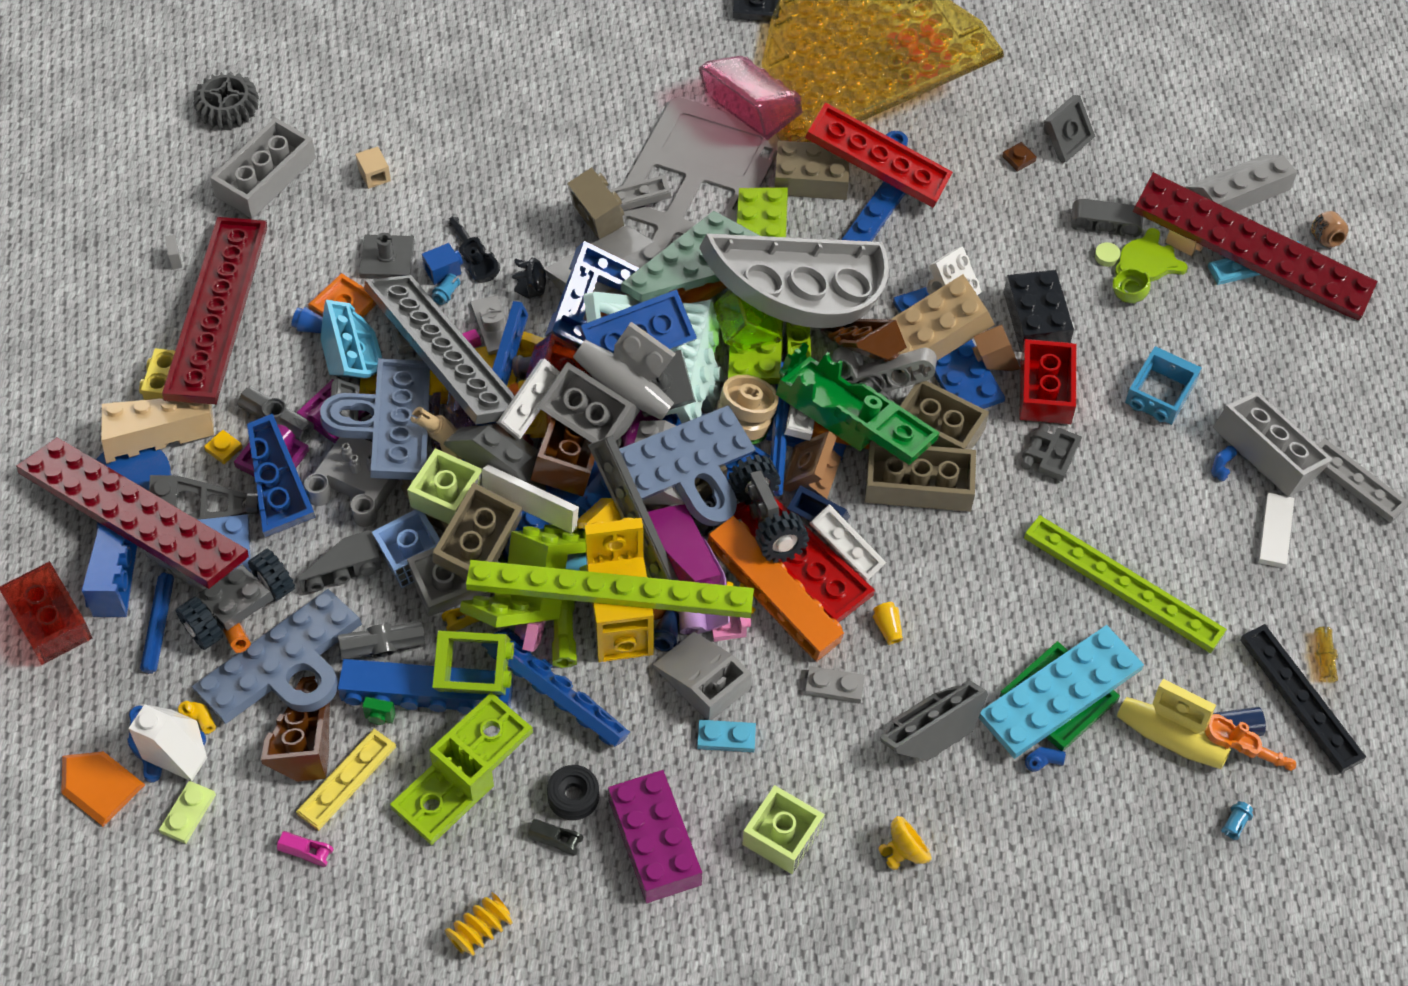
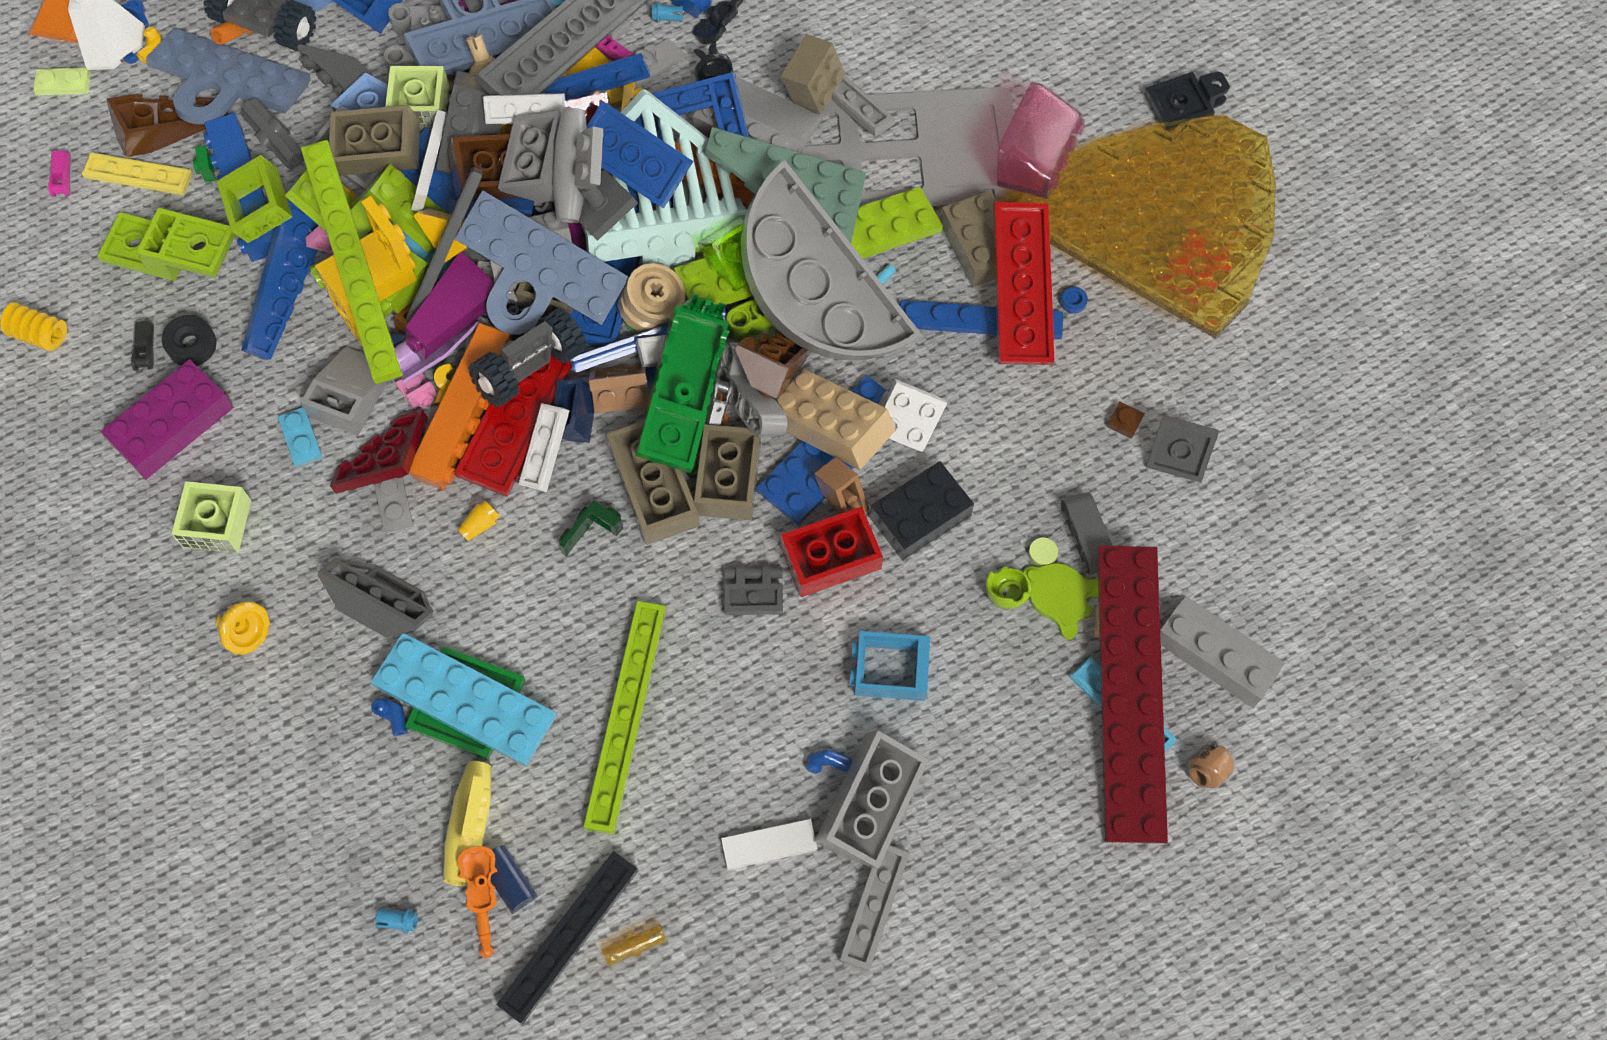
camera: 65 degrees right, 10 degrees up
(789, 669) = (383, 456): none -> dark red plate
(928, 536) = (605, 517): none -> dark green bracket

